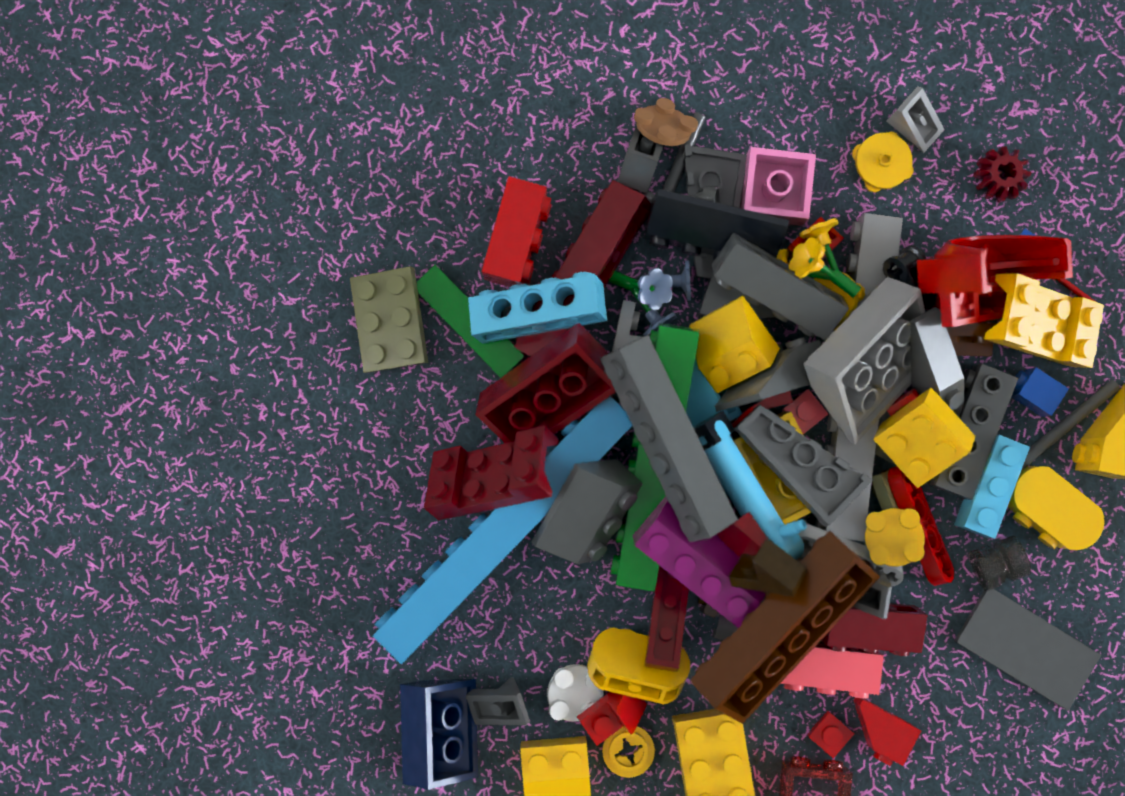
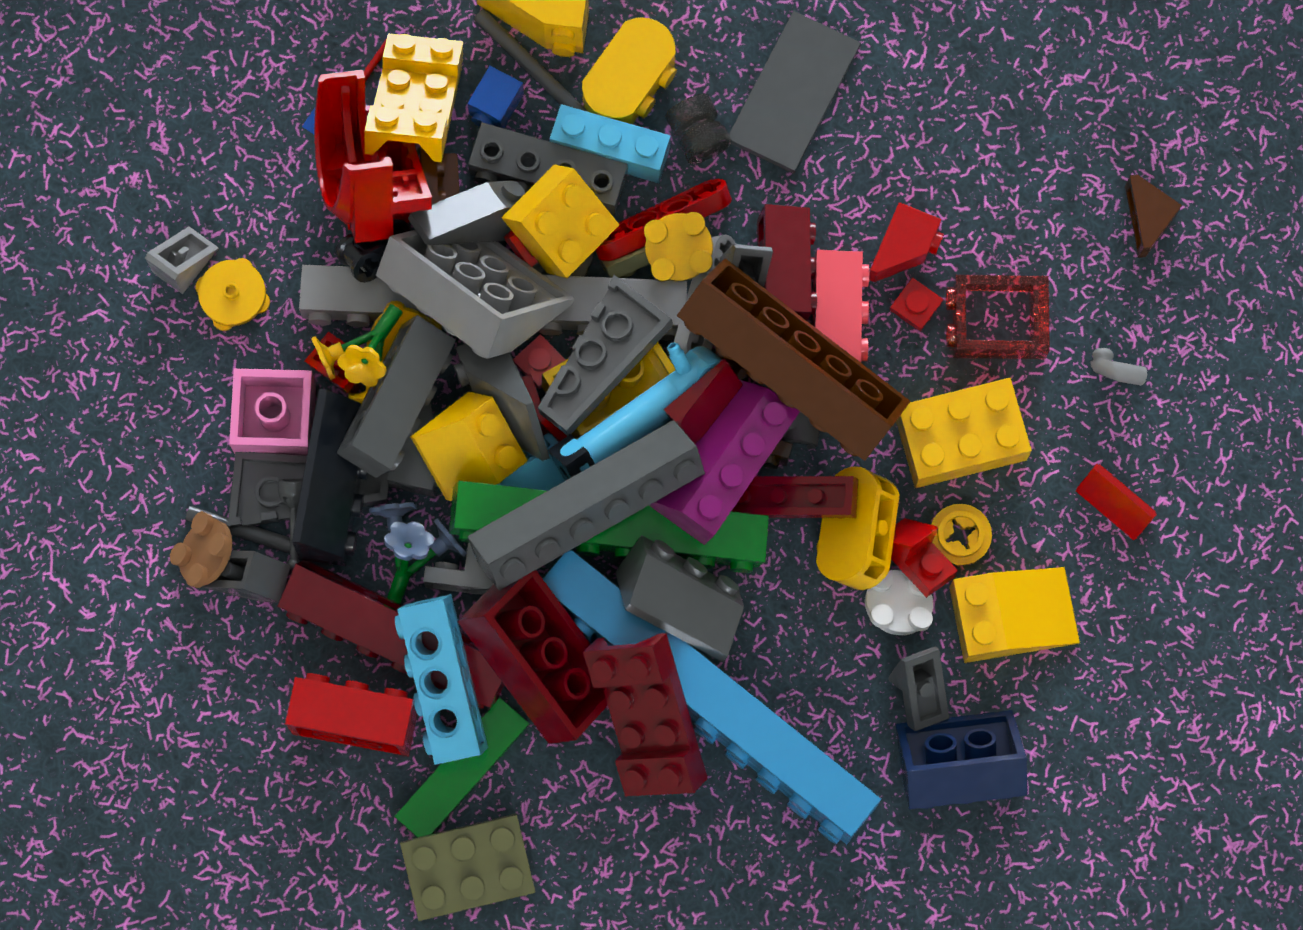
camera: 90 degrees left, 10 degrees down
(768, 571) = (730, 380): dark brown slope -> none
(993, 182) = (240, 141): dark red gear -> none

